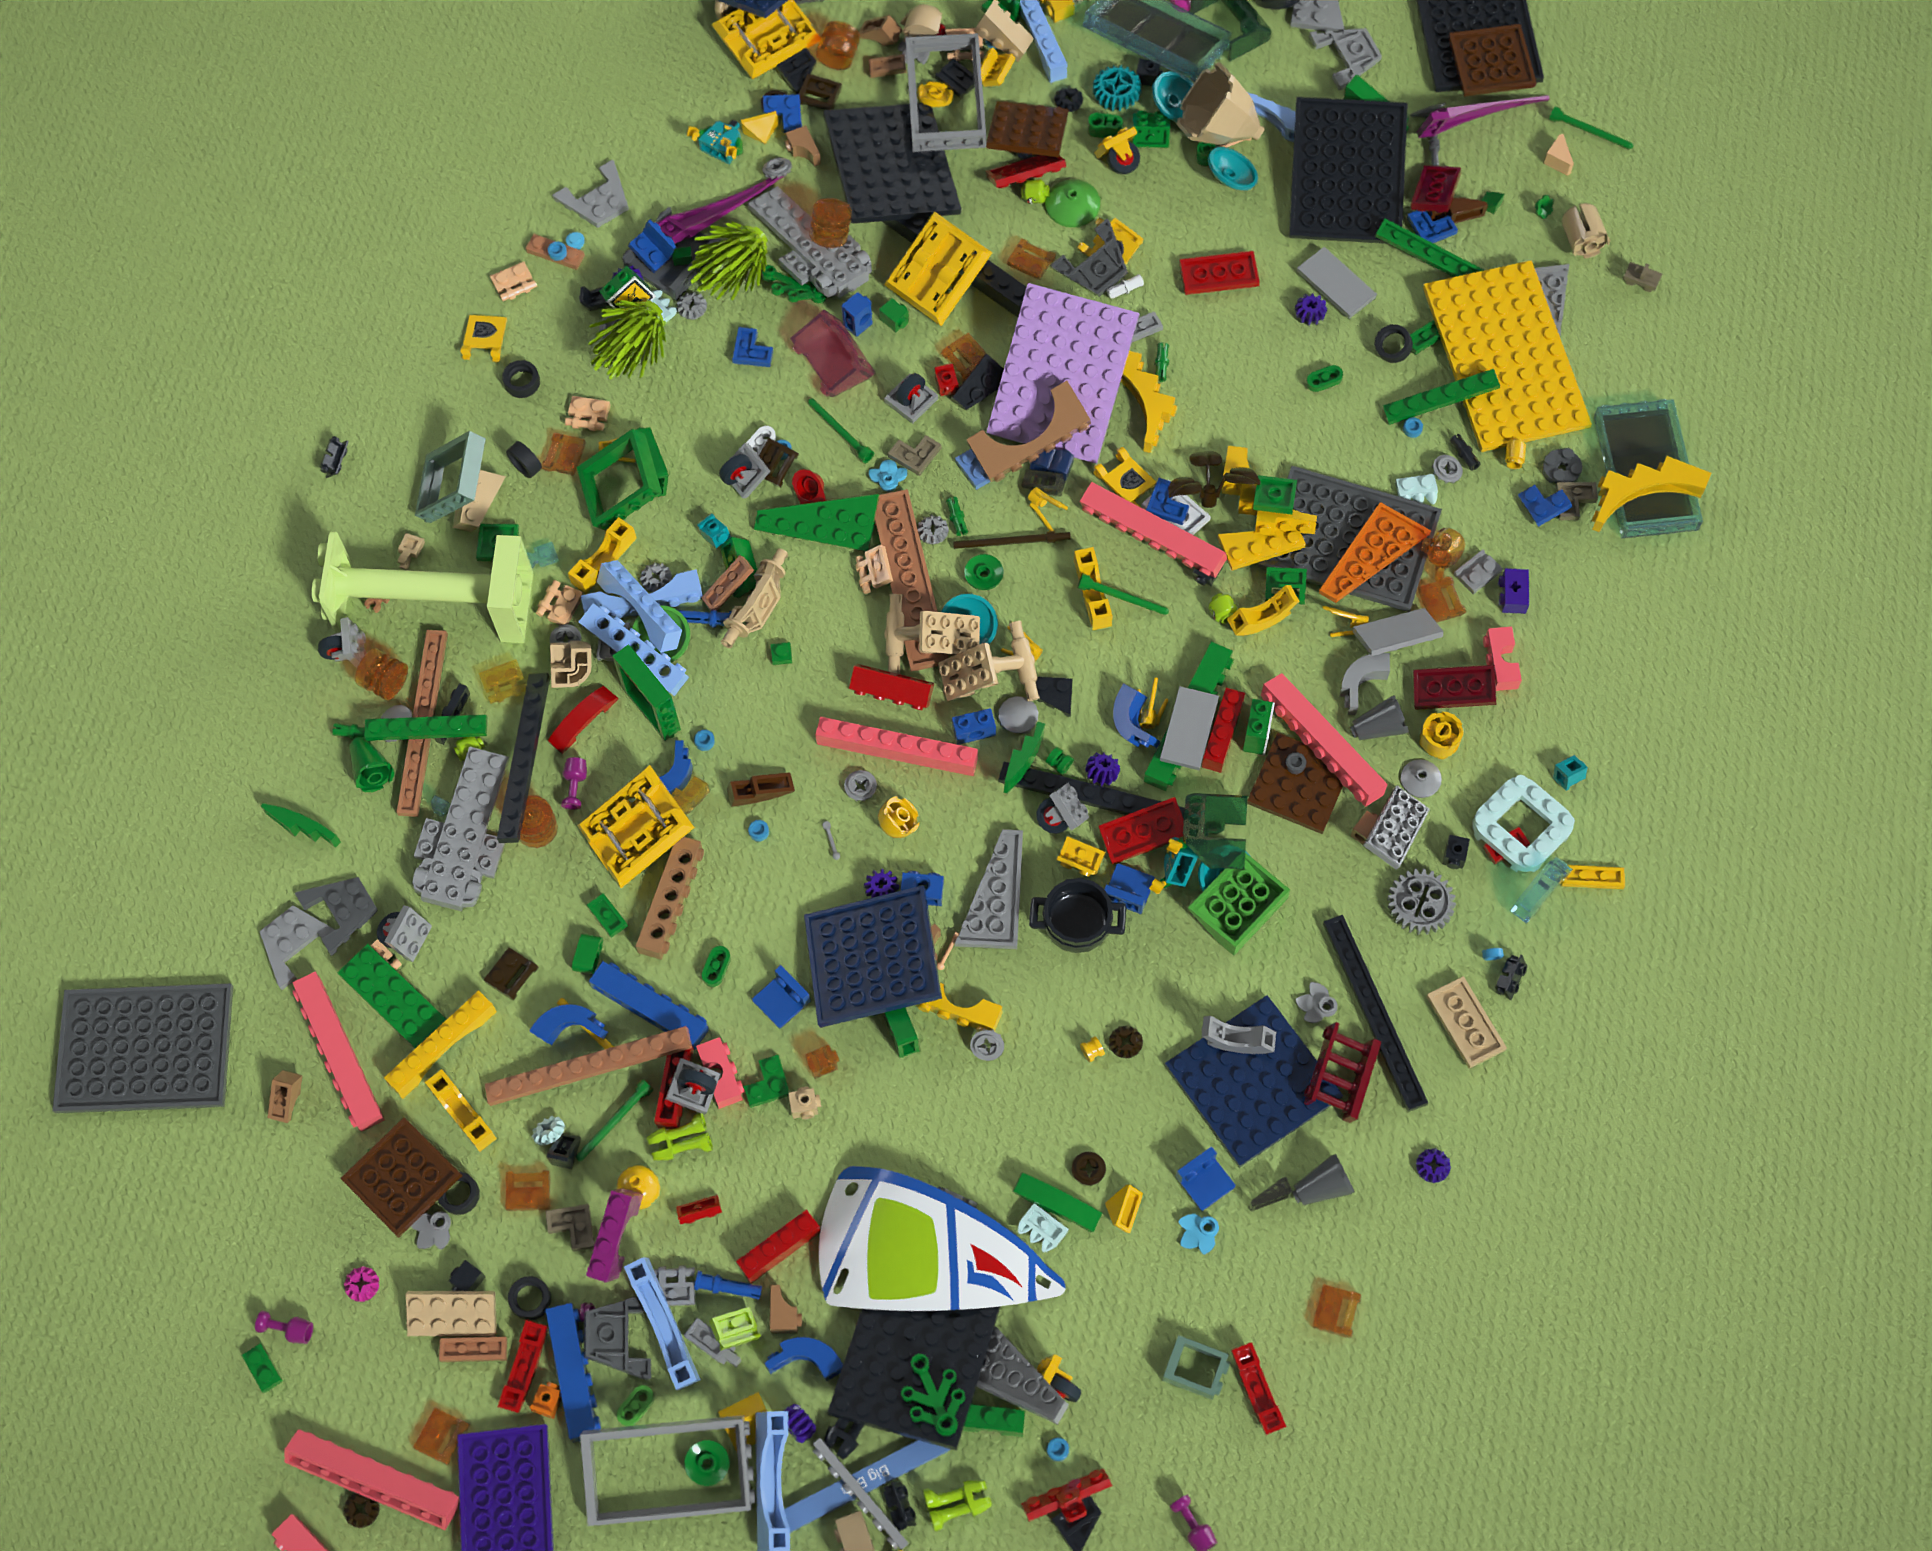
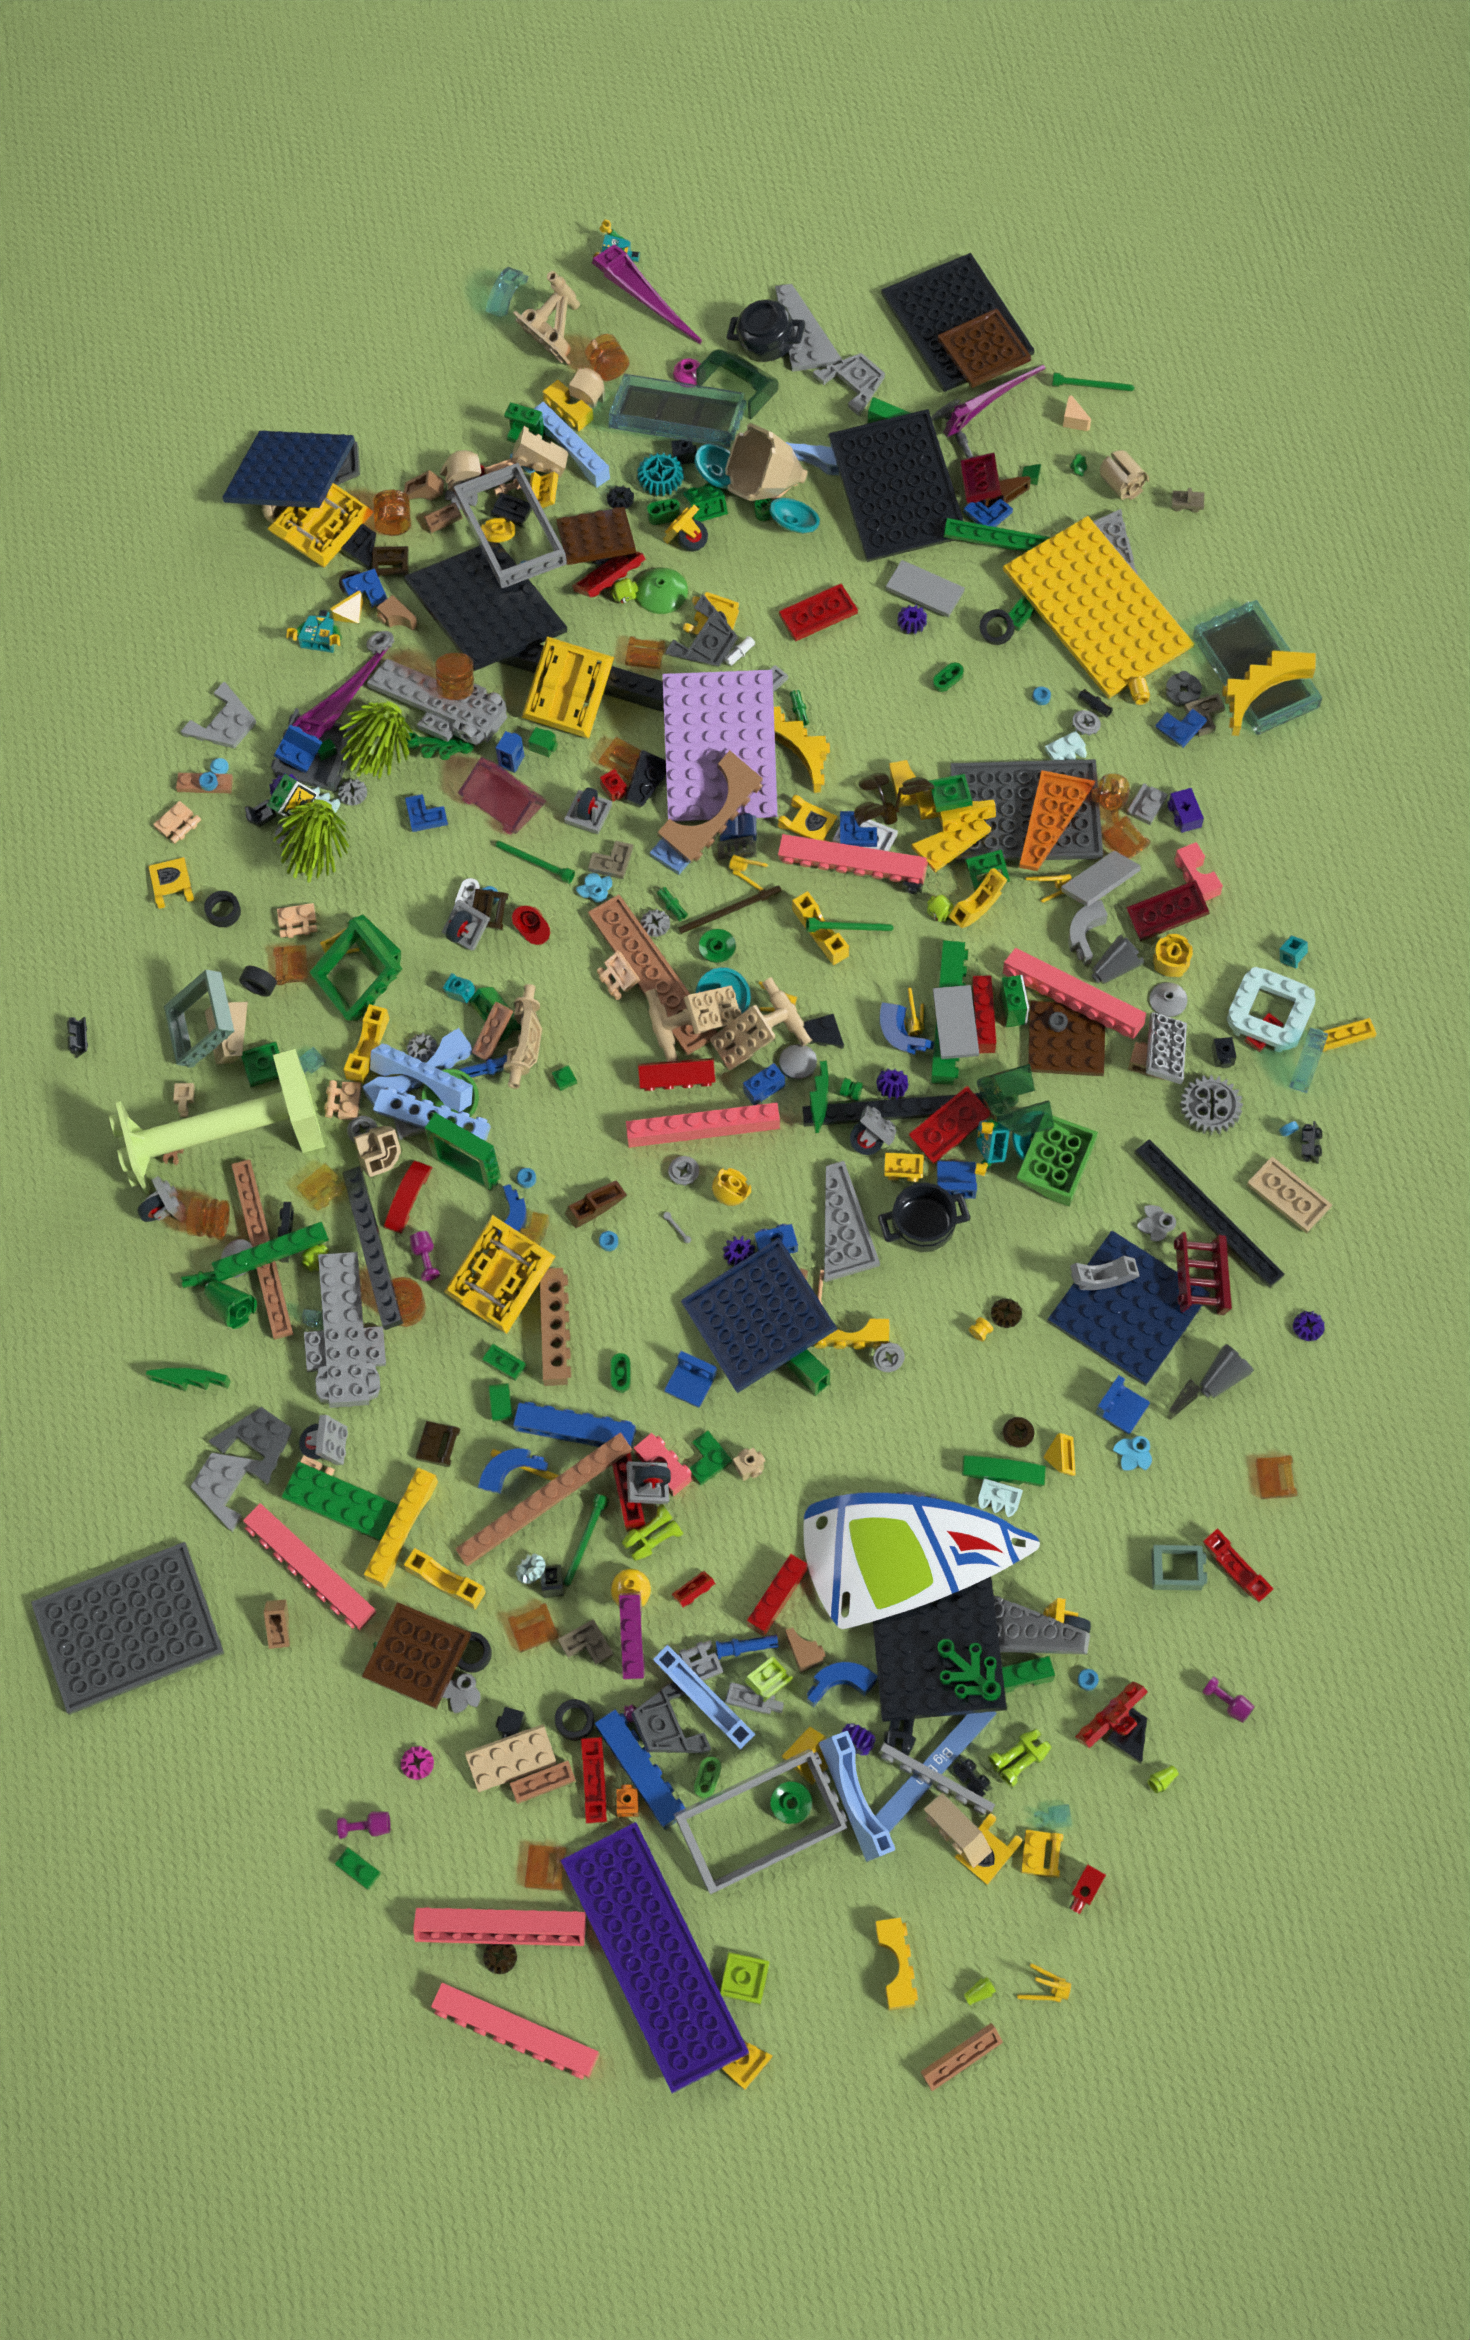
camera: 20 degrees left, 0 degrees up
(822, 1061) = (749, 1422): clear orange brick -> none
(832, 522) = (564, 945): green wing -> none
(1441, 396) = (1057, 660): green plate -> none

